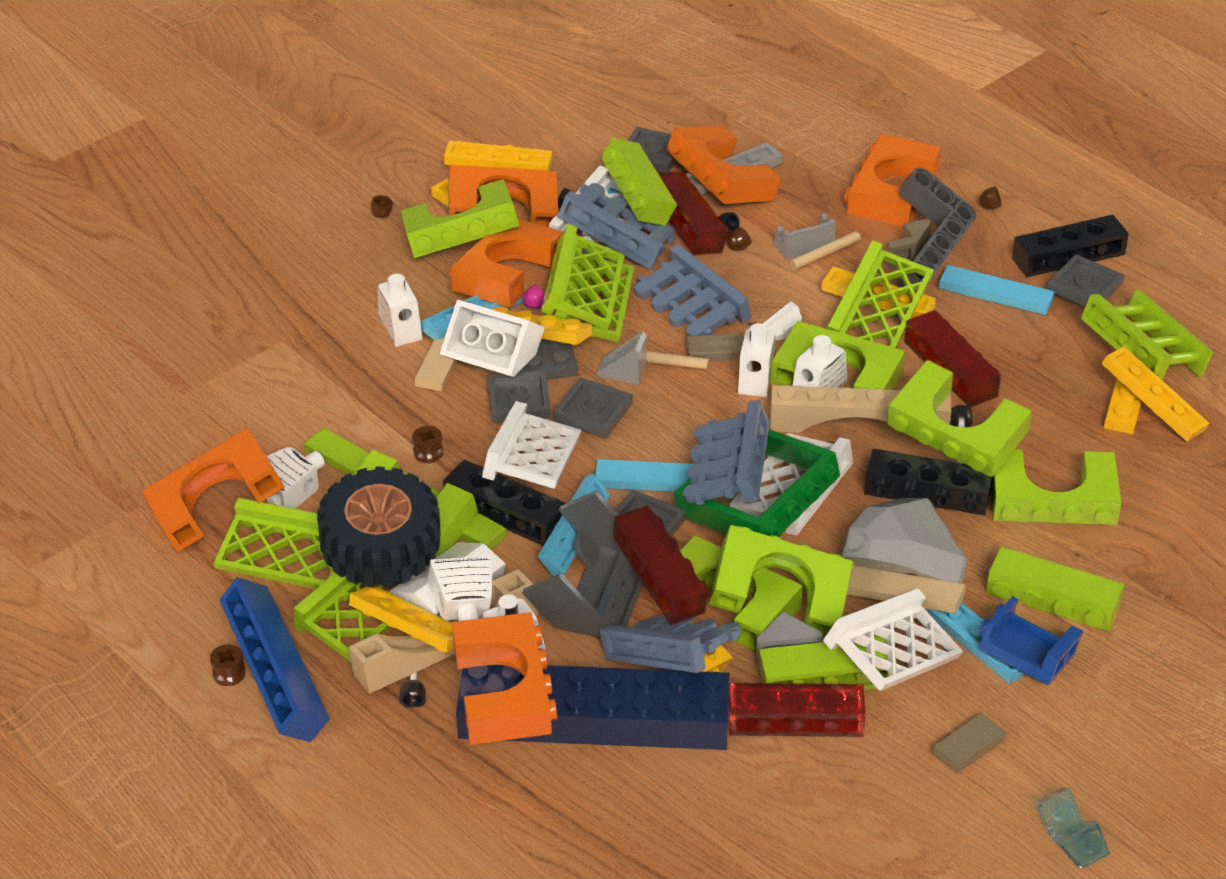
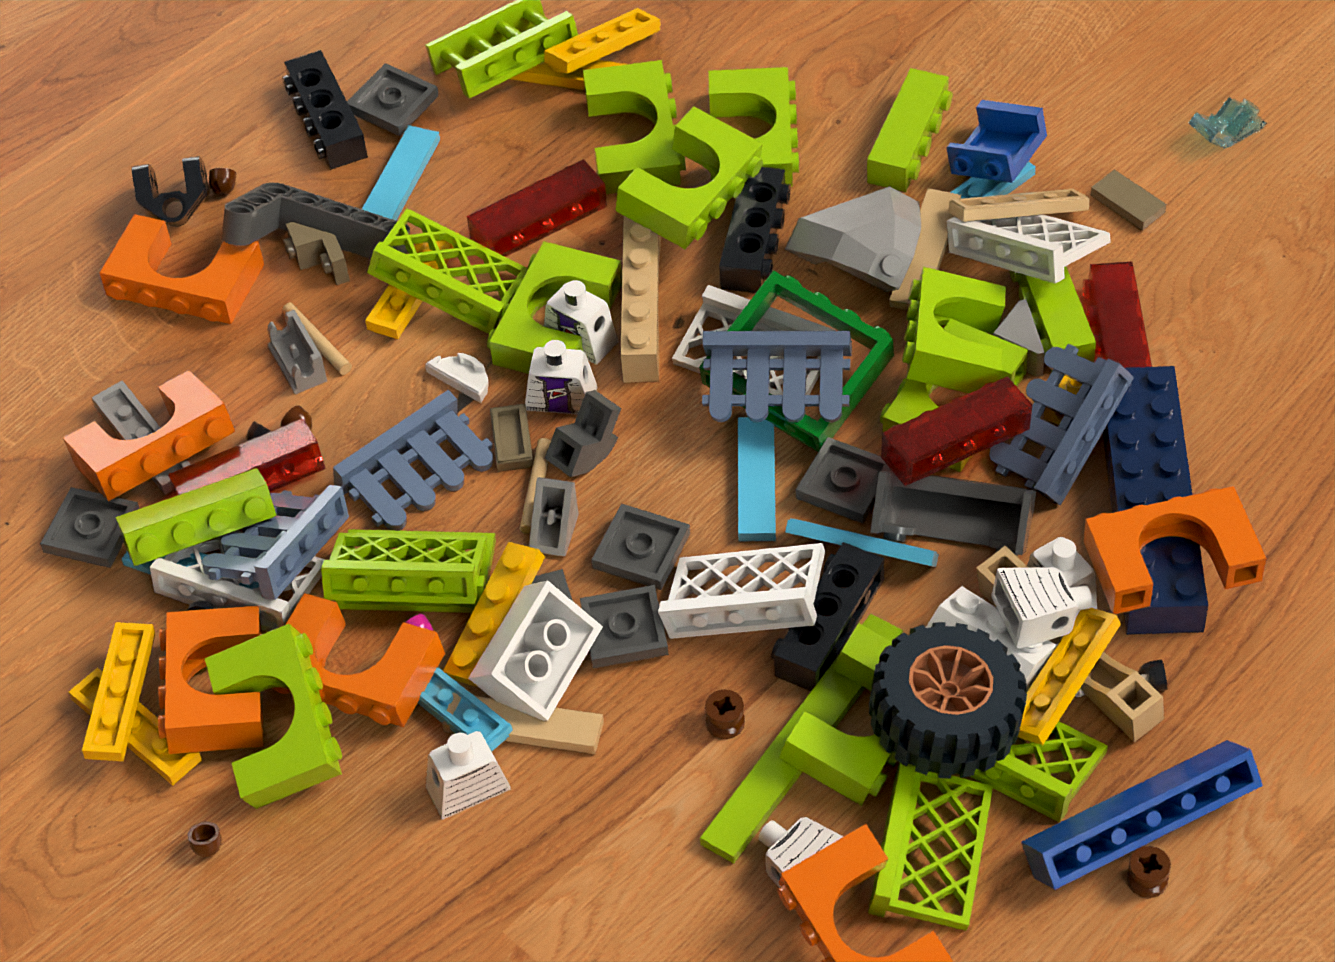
camera: 90 degrees left, 10 degrees up
(696, 376) = (589, 440): none -> dark grey brick
(945, 647) = (1018, 205): none -> tan tile
(970, 167) = (149, 198): none -> black piece
(1088, 419) = (643, 91): none -> lime arch

